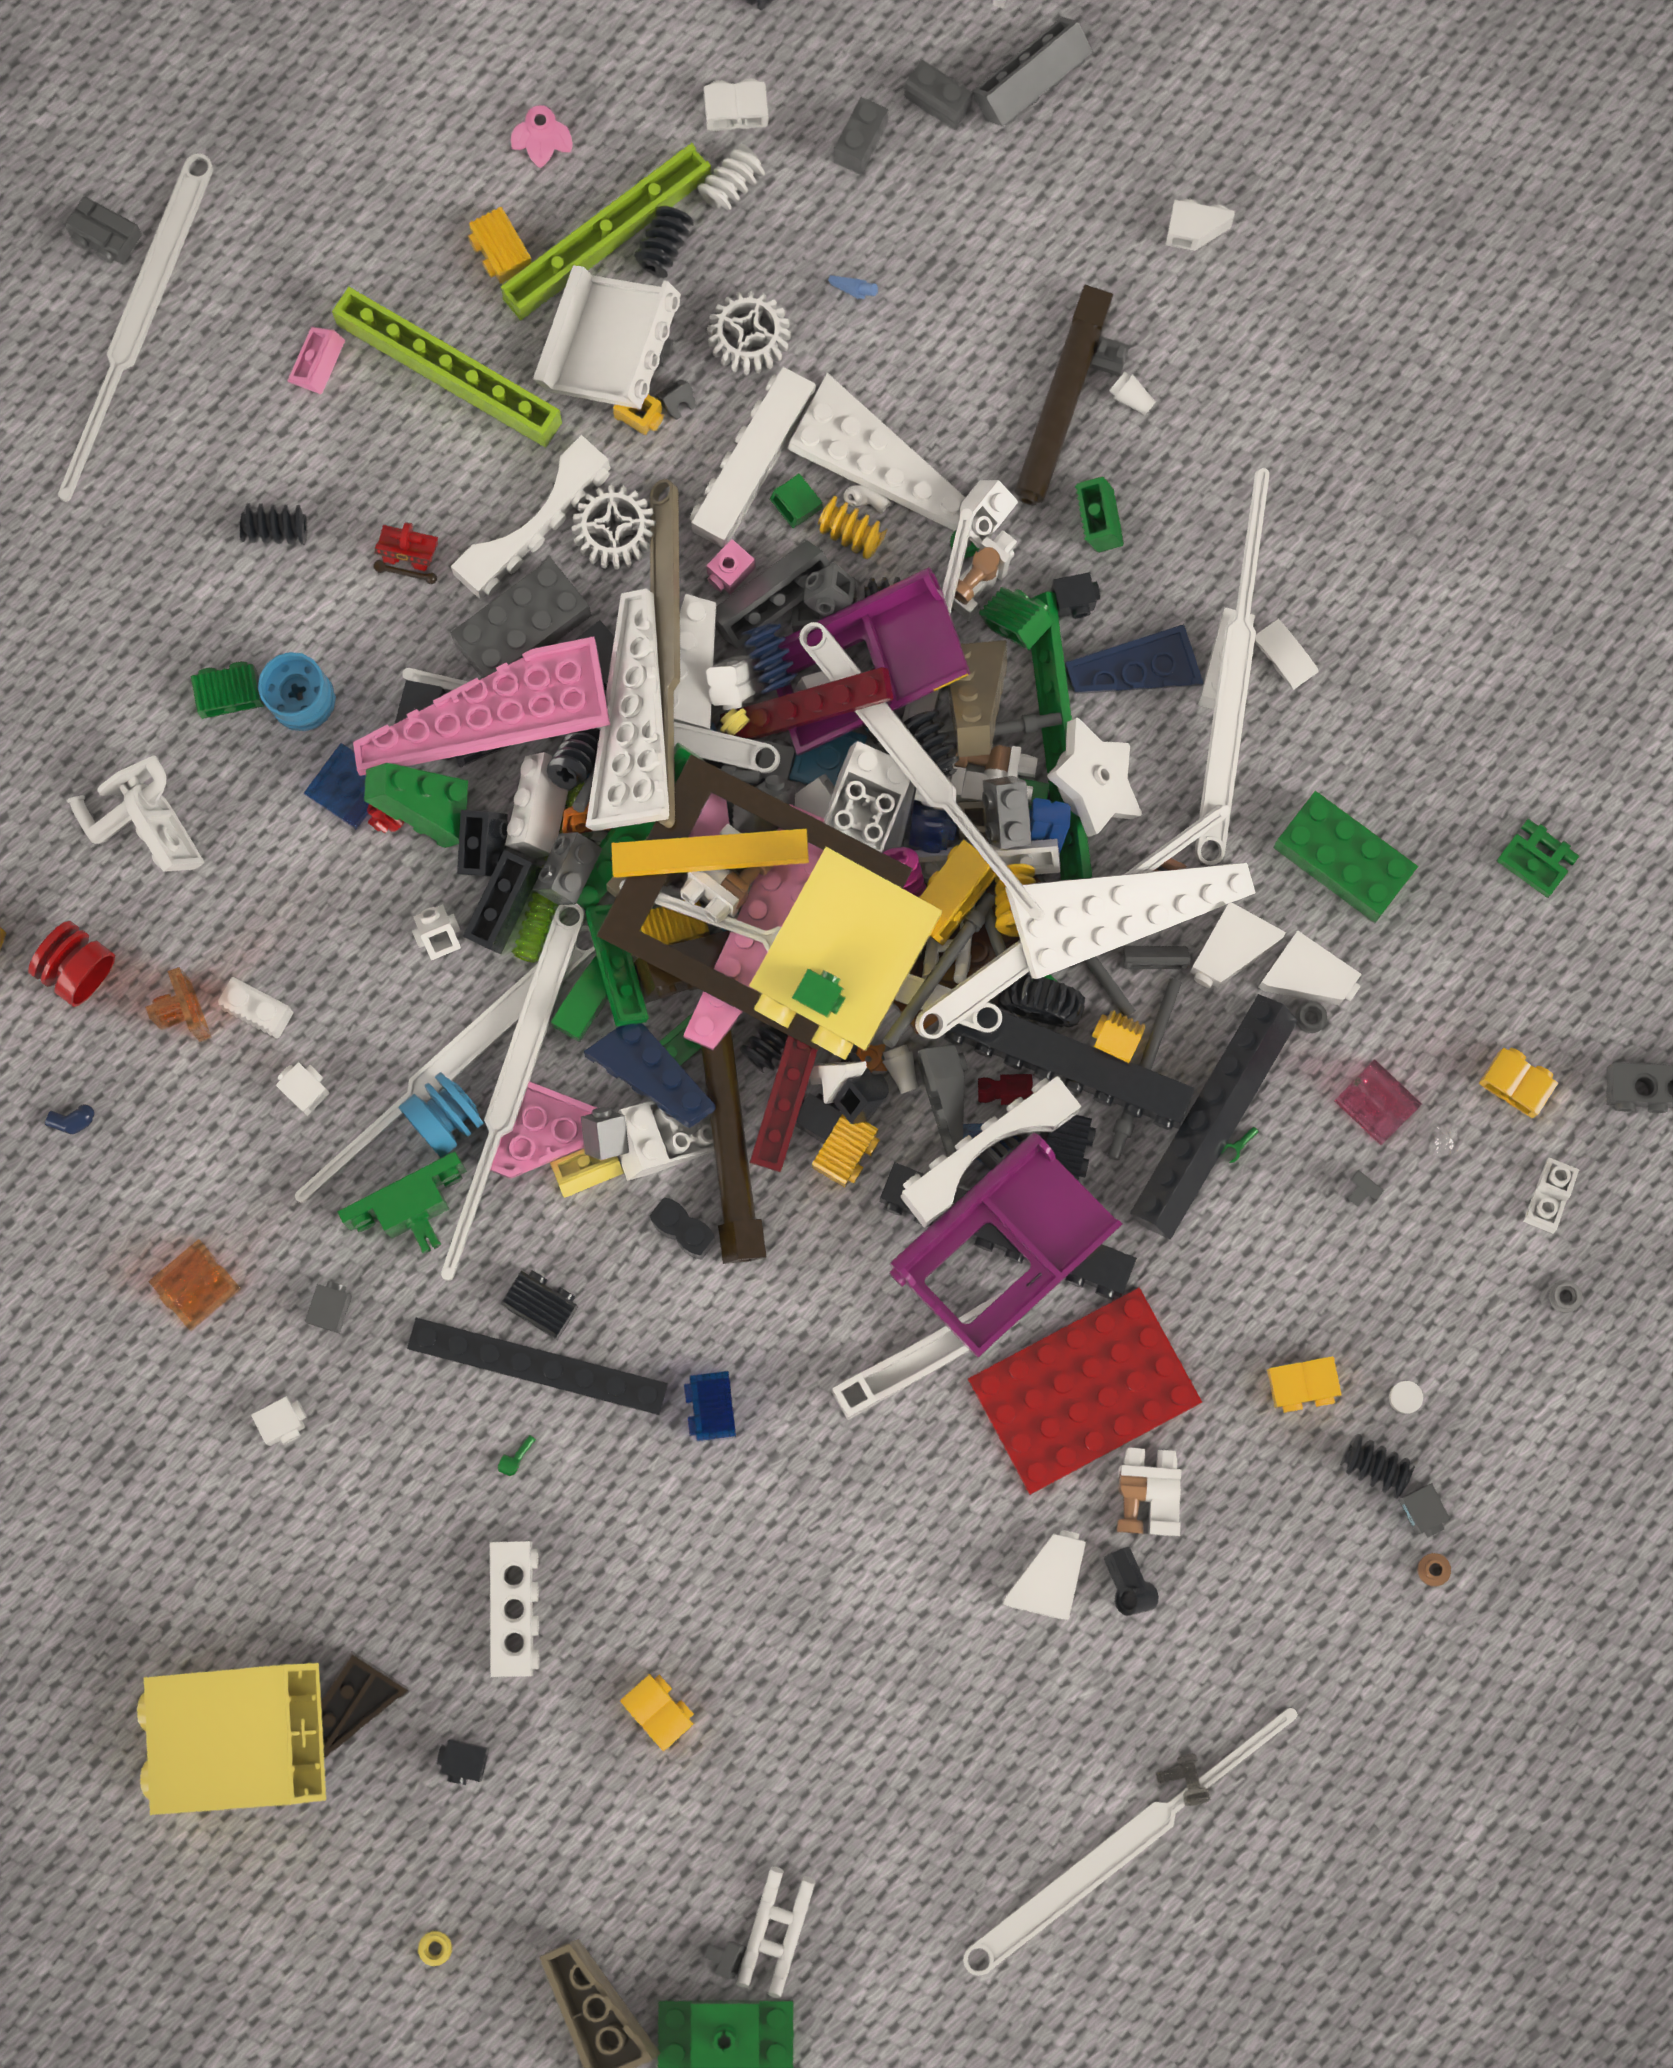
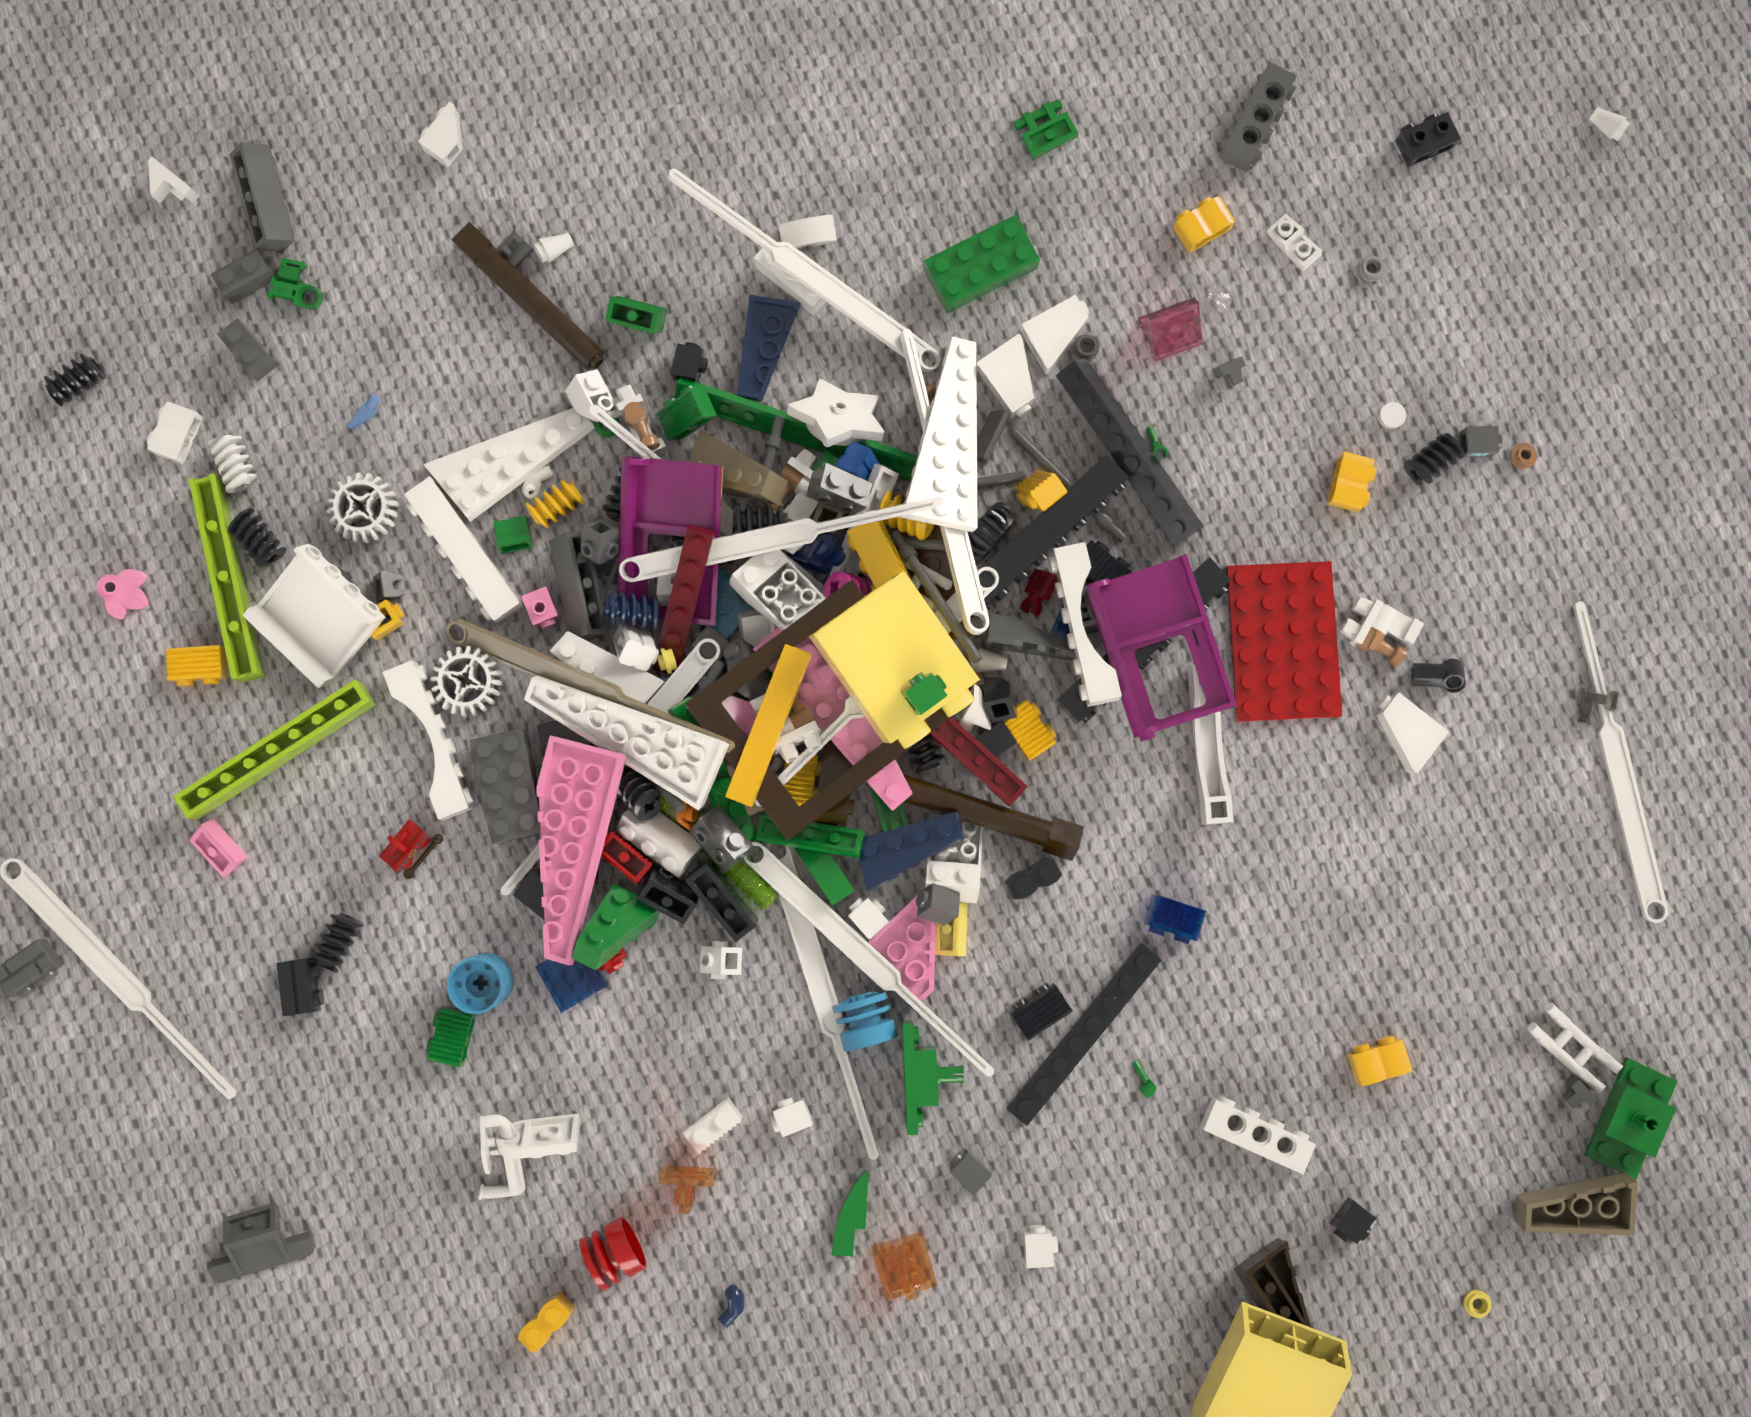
camera: 65 degrees left, 5 degrees up
(208, 510) = (299, 986): none -> black brick
(223, 1201) = (851, 1217): none -> green slope
(501, 780) = (626, 858): none -> red brick
(557, 1068) = (868, 916): none -> white brick
(955, 143) = (290, 282): none -> green piece

